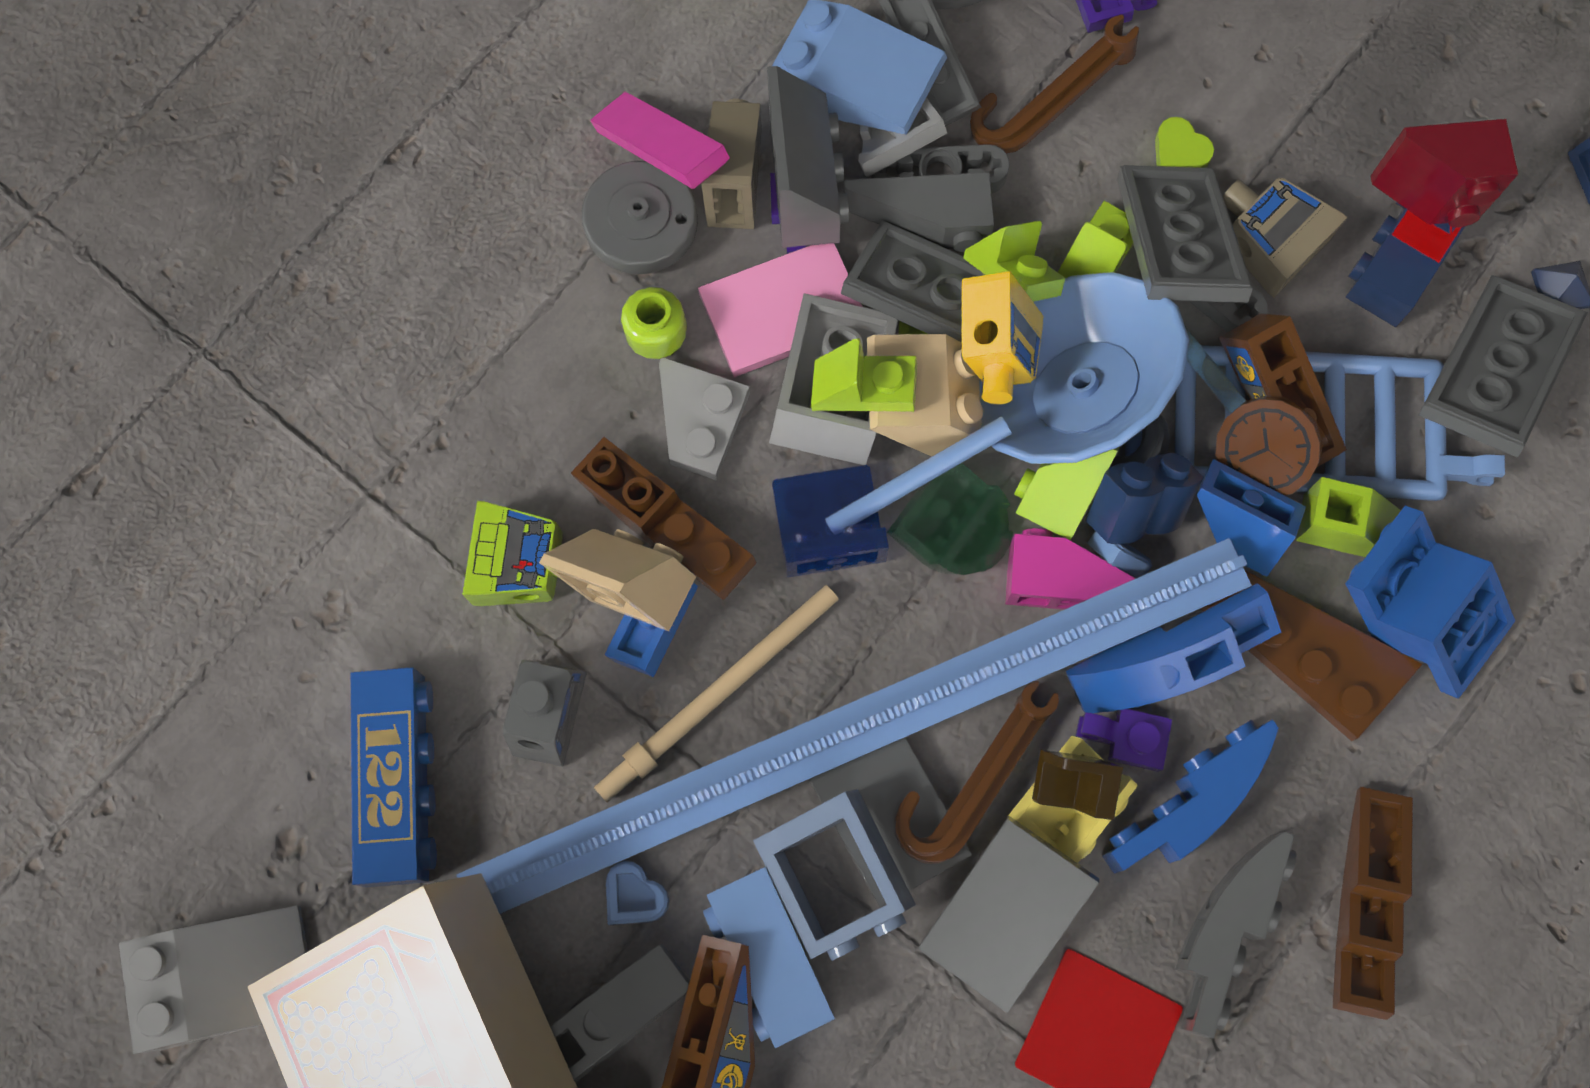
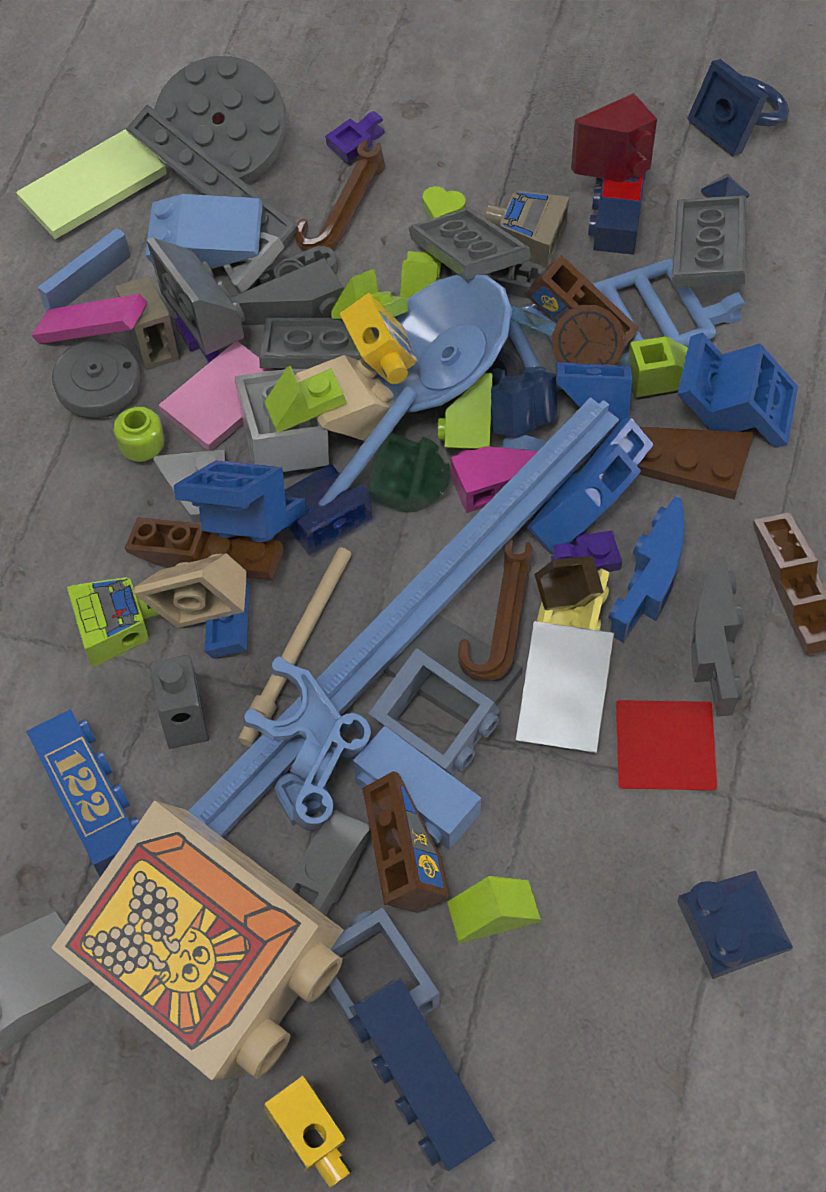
camera: 25 degrees left, 15 degrees down
(676, 863) = (321, 728): none -> medium blue piece
(690, 57) = (85, 270): none -> medium blue tile
(724, 487) = (241, 499): none -> blue bracket

